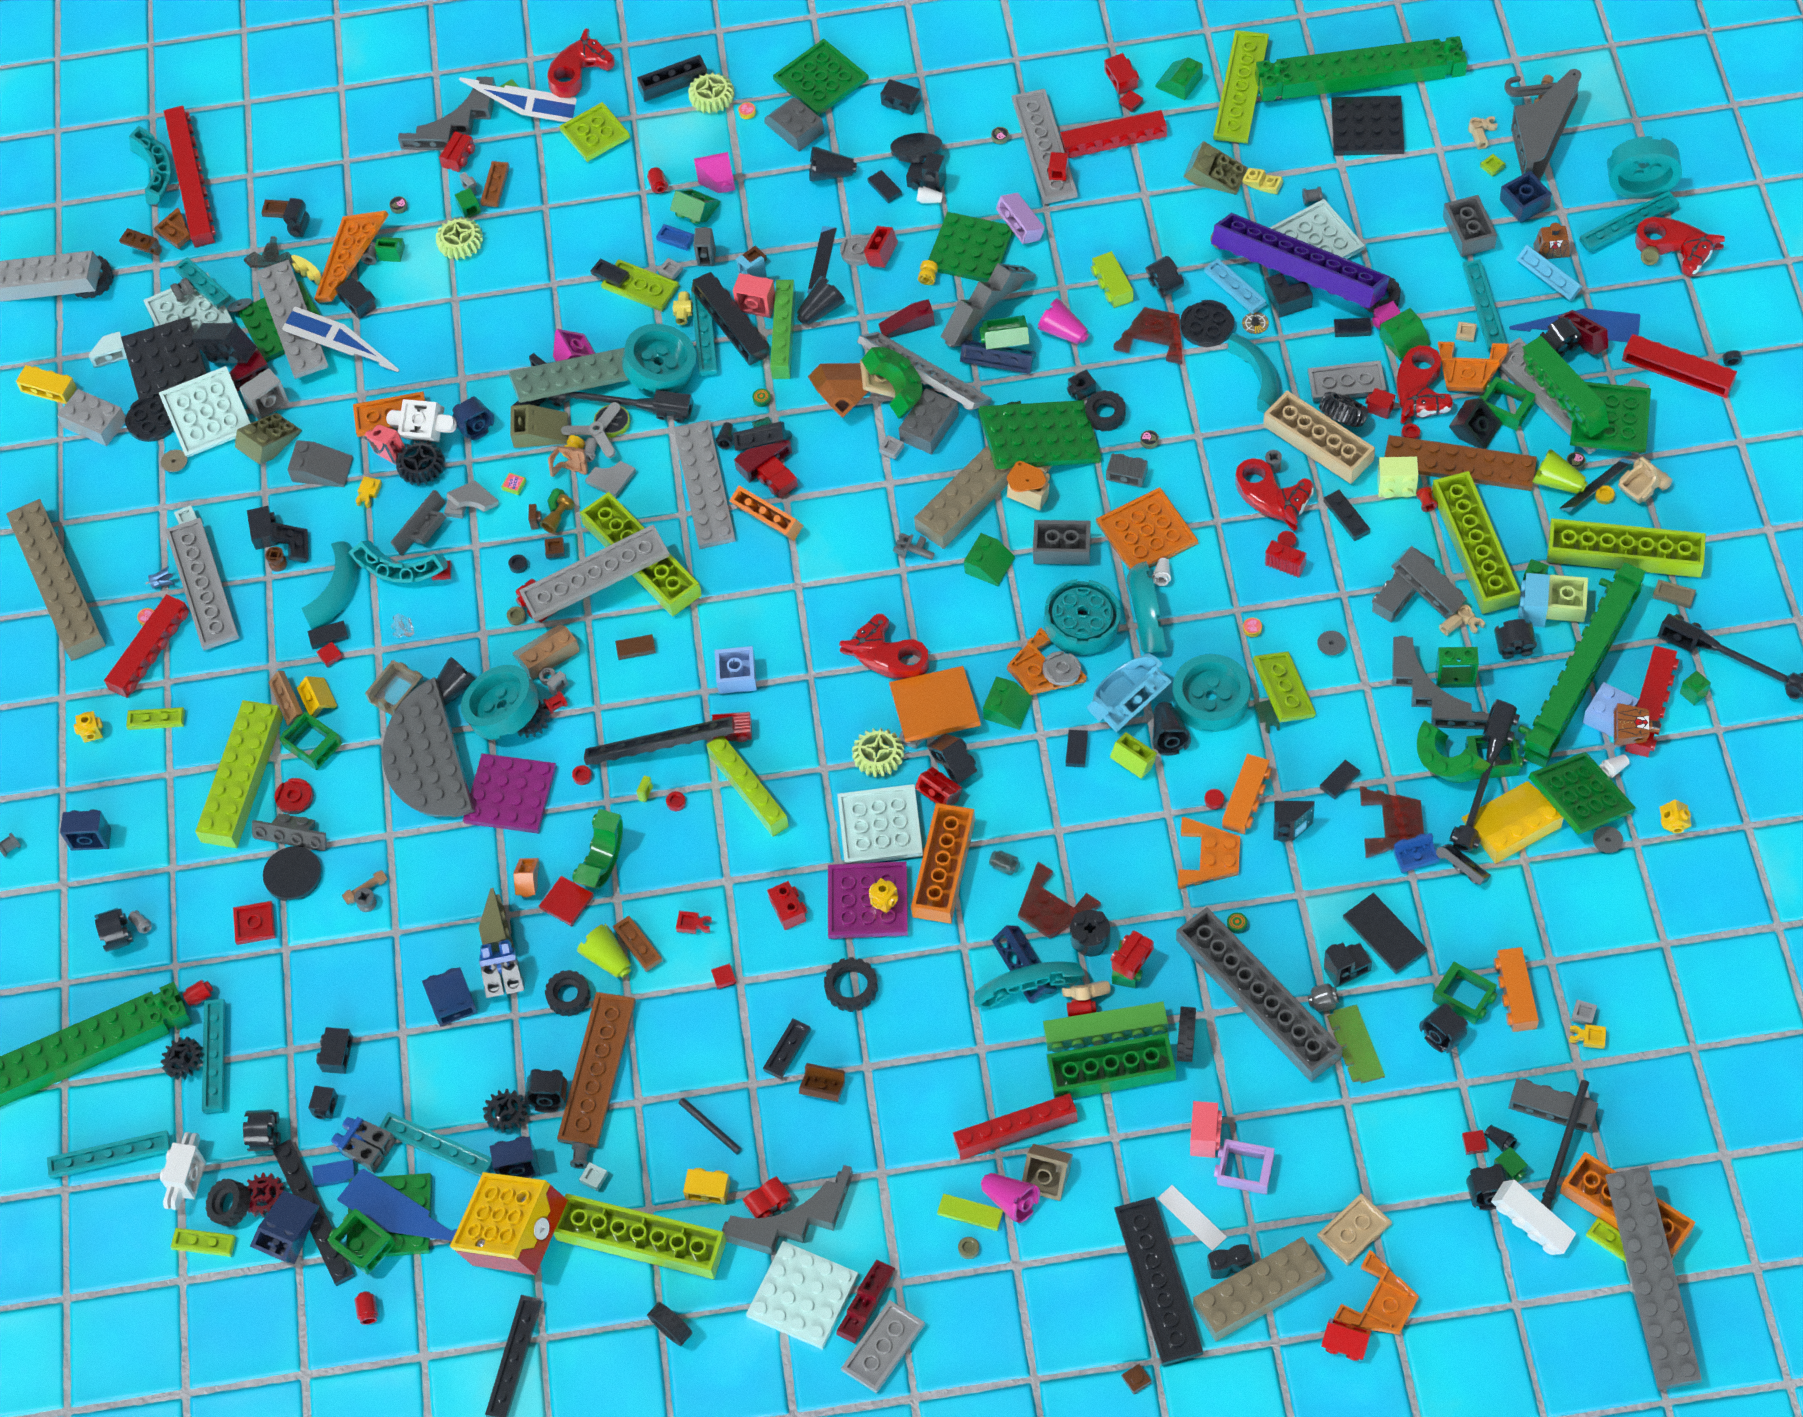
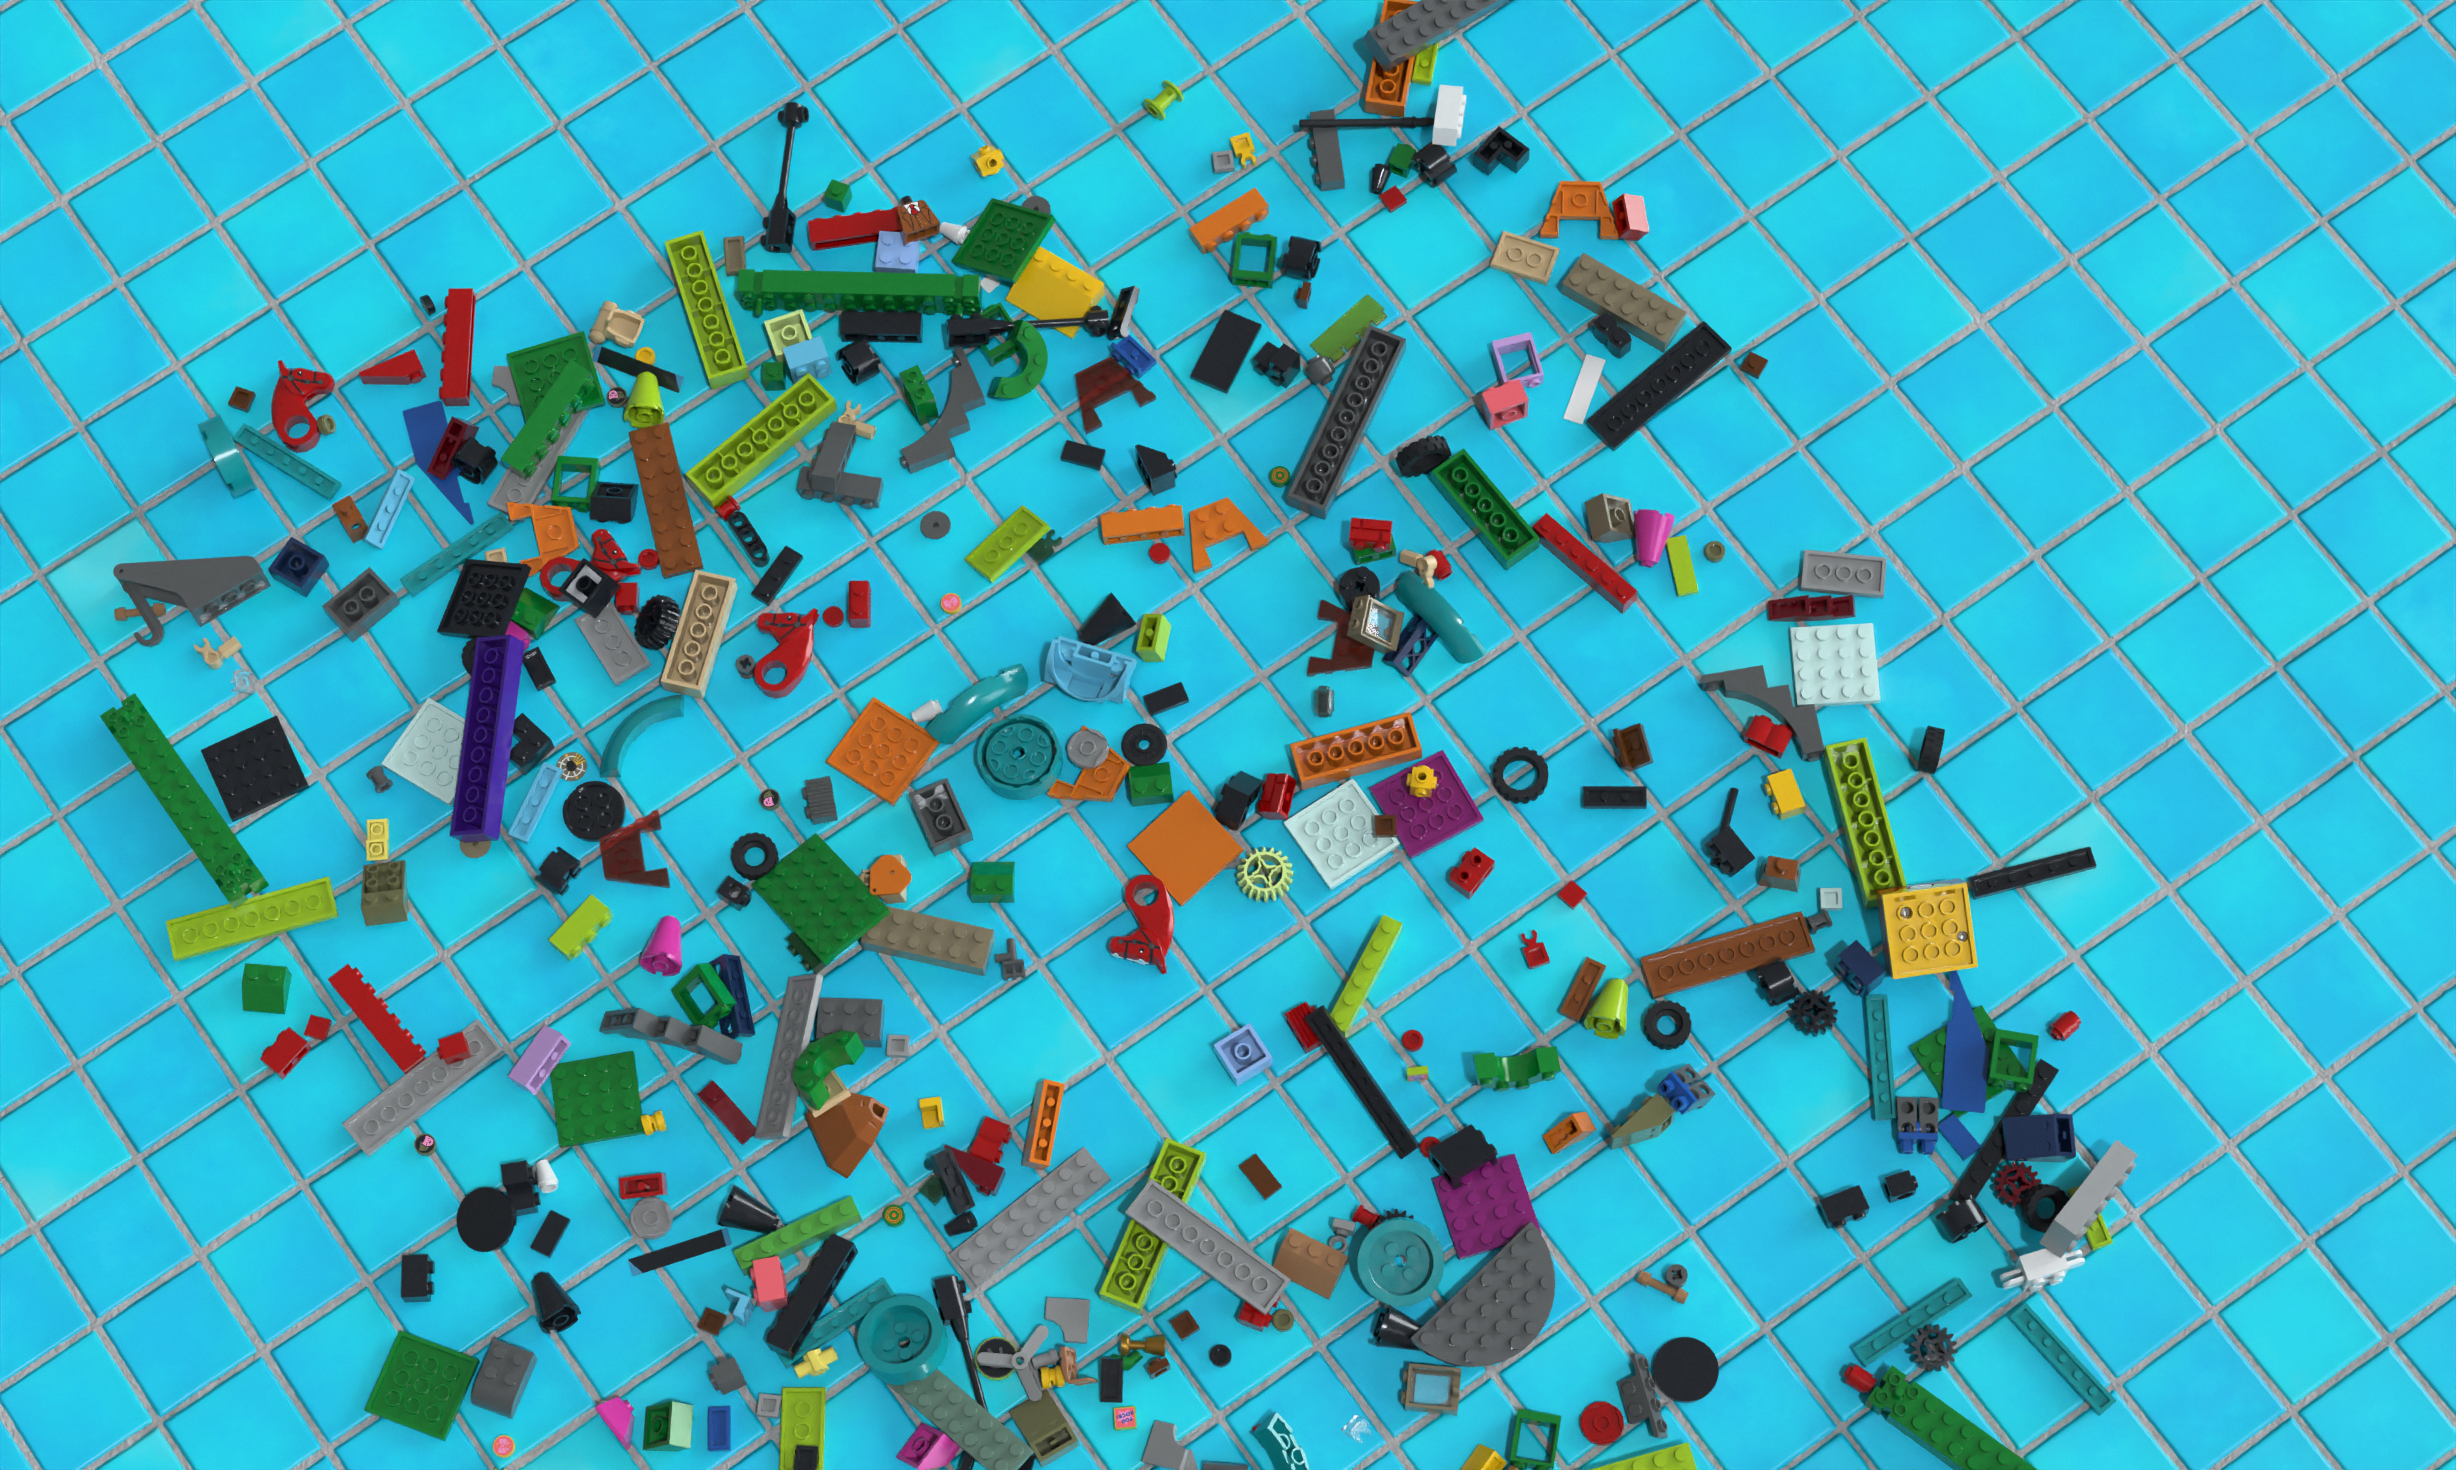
camera: 120 degrees left, 10 degrees up
(202, 1225) = (2089, 1199): none -> light grey brick
(254, 922) = (1756, 1375): red tile -> none
(449, 996) = (1736, 1122): dark blue slope -> none
(545, 483) = (1112, 1380): none -> black tile
(555, 786) = (1462, 1155): none -> black panel
(566, 901) = (1574, 1085): red tile -> none
(638, 1142) = (1780, 873): none -> dark orange torso
(681, 1111) = (1729, 851): none -> black brick
(824, 451) = (932, 1112): none -> yellow panel
(862, 853) = (1385, 826): none -> reddish brown plate
(1044, 726) = (1146, 732): none -> black wheel
(1047, 924) = (1375, 624): none -> dark tan window
(1105, 1026) = (1445, 535): bright green brick -> none
(1214, 676) = (1041, 584): teal brick -> none
(1396, 370) = (589, 588): none -> black slope
(1397, 477) = (718, 538): yellowish green brick -> none
(1401, 502) = (747, 530): none -> black beam
(1407, 1018) = (1304, 294): none -> reddish brown plate
(1427, 301) = (484, 599): none -> black plate
(1443, 136) = (243, 682): none -> clear tile
(1478, 1254) = (1501, 148): none -> black brick
(1492, 165) = (260, 623): lime tile -> none
(1544, 673) = (882, 326): none -> black brick
(1673, 987) = (1163, 100): none -> lime hose
(1677, 319) = (396, 371): none -> red slope
(1703, 209) = (242, 399): none -> reddish brown plate

